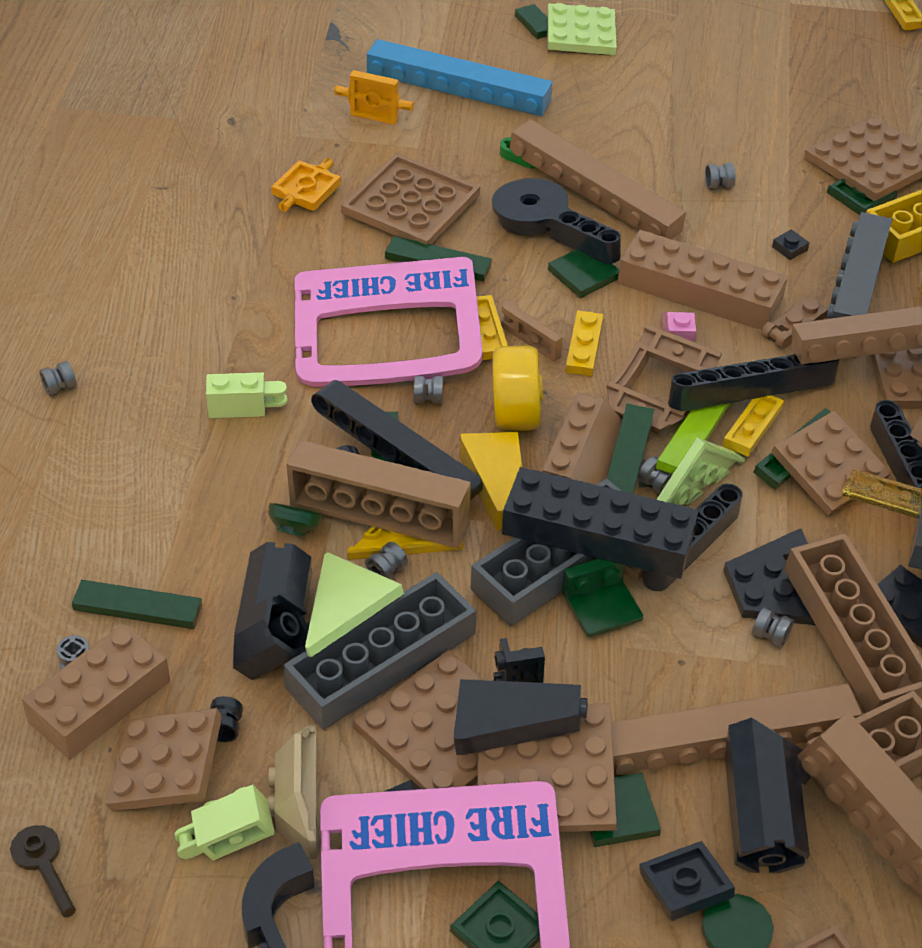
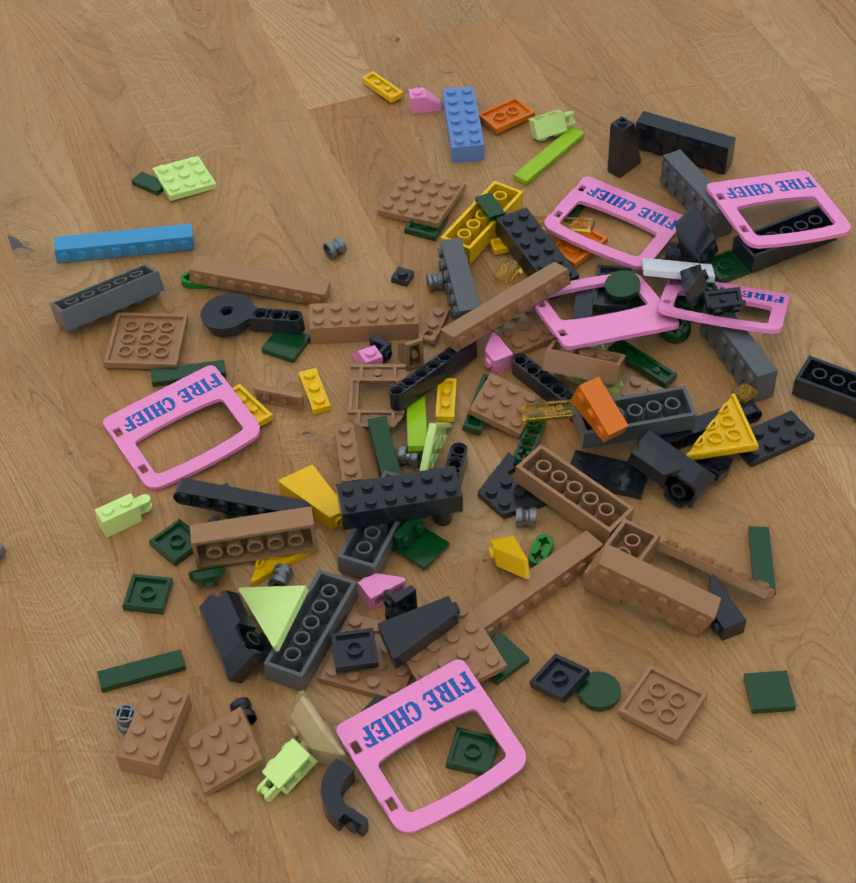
camera: 25 degrees left, 0 degrees up
(37, 849) = (179, 837): dark brown piece -> none
(210, 510) = (147, 594): none -> dark green tile
(274, 455) = (173, 542): none -> dark green tile
(306, 185) = (70, 358): light orange plate -> none
(374, 97) = (78, 277): light orange plate -> none
(394, 129) = (107, 297): none -> dark grey brick
(418, 703) = (354, 650): none -> black plate
(434, 389) = (238, 461): flat silver wheel -> none
(508, 625) = (372, 588): none -> bright pink slope
(517, 388) = (297, 437): yellow wheel -> none
(706, 322) = (383, 346): none -> black bracket
(712, 669) = (509, 556): none -> yellow slope
(740, 343) = (411, 354): none -> medium nougat slope
(763, 680) = (537, 550): none -> green beam
(765, 798) = (578, 613): black brick -> none
(829, 265) = (434, 281): none -> flat silver wheel
(840, 523) = (527, 439): none -> dark green beam
(860, 391) = (497, 355): none -> bright pink slope

